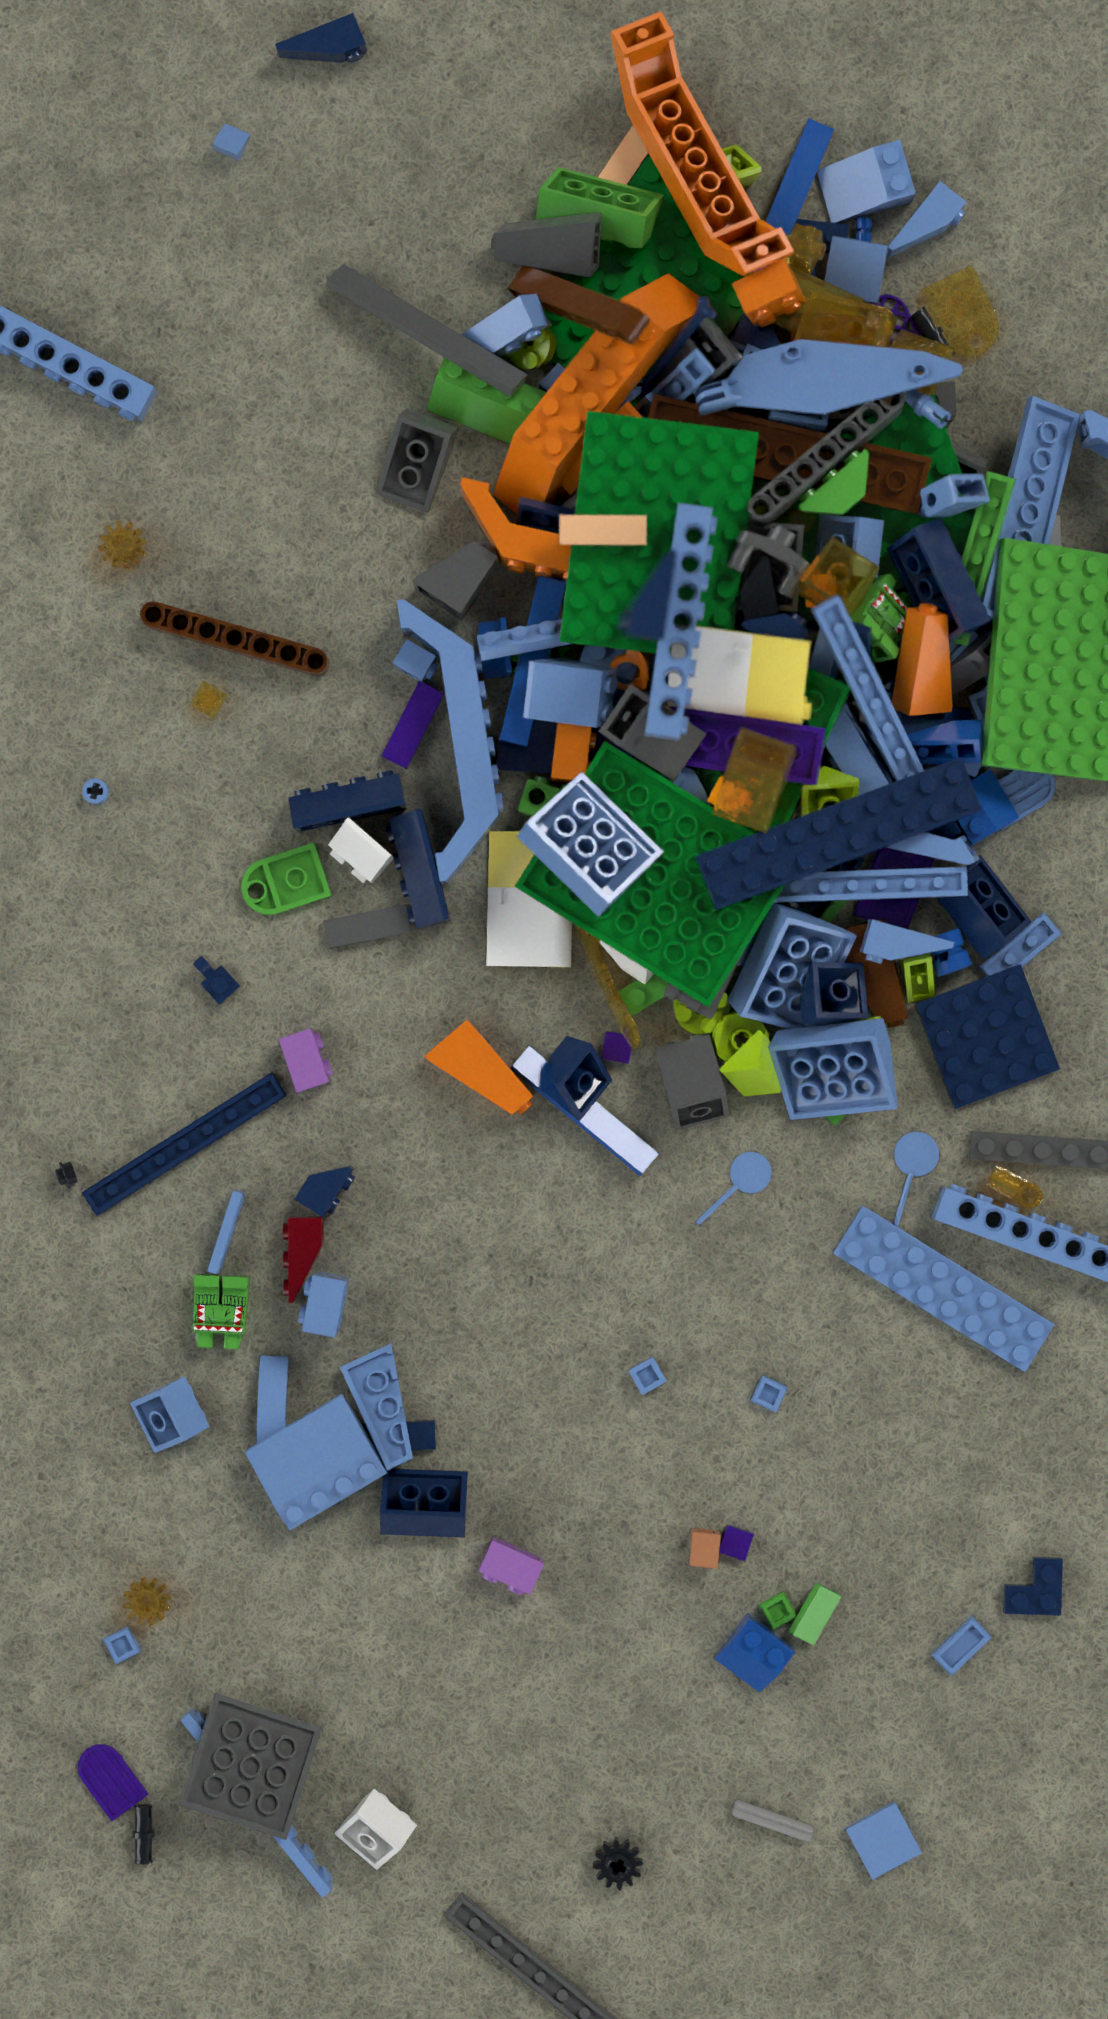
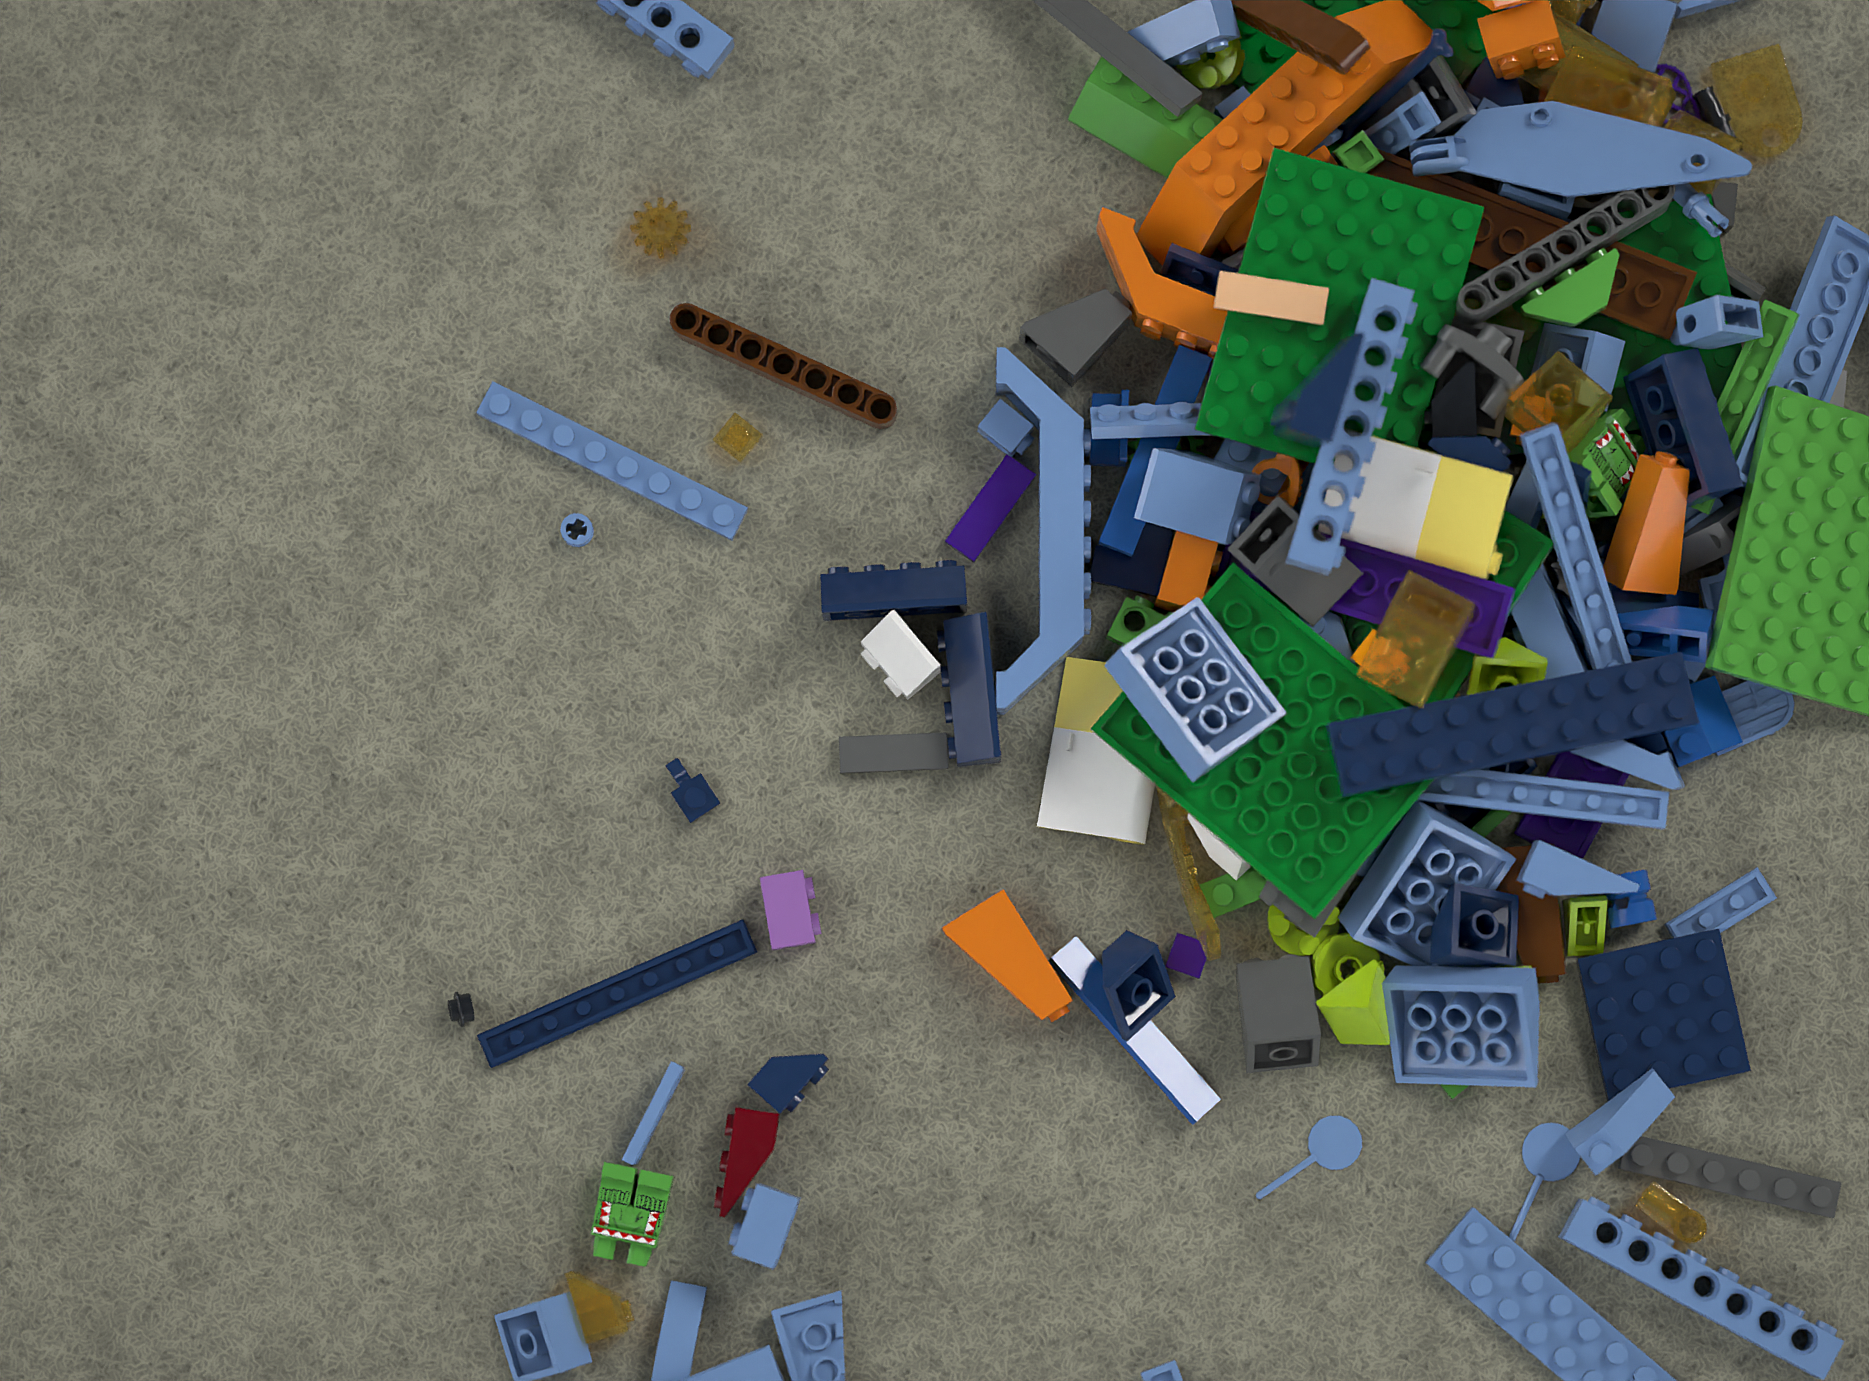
camera: 10 degrees right, 5 degrees down
(114, 733) = (612, 461): none -> medium blue plate
(208, 1385) = (598, 1308): none -> clear yellow slope
(288, 880) = (802, 678): bright green tile -> none
(416, 459) = (1046, 178): dark grey slope -> none
(656, 405) = (1359, 154): none -> bright green tile
(965, 1124) = (1620, 1121): none -> medium blue slope
(989, 911) = (1685, 856): dark blue slope -> none

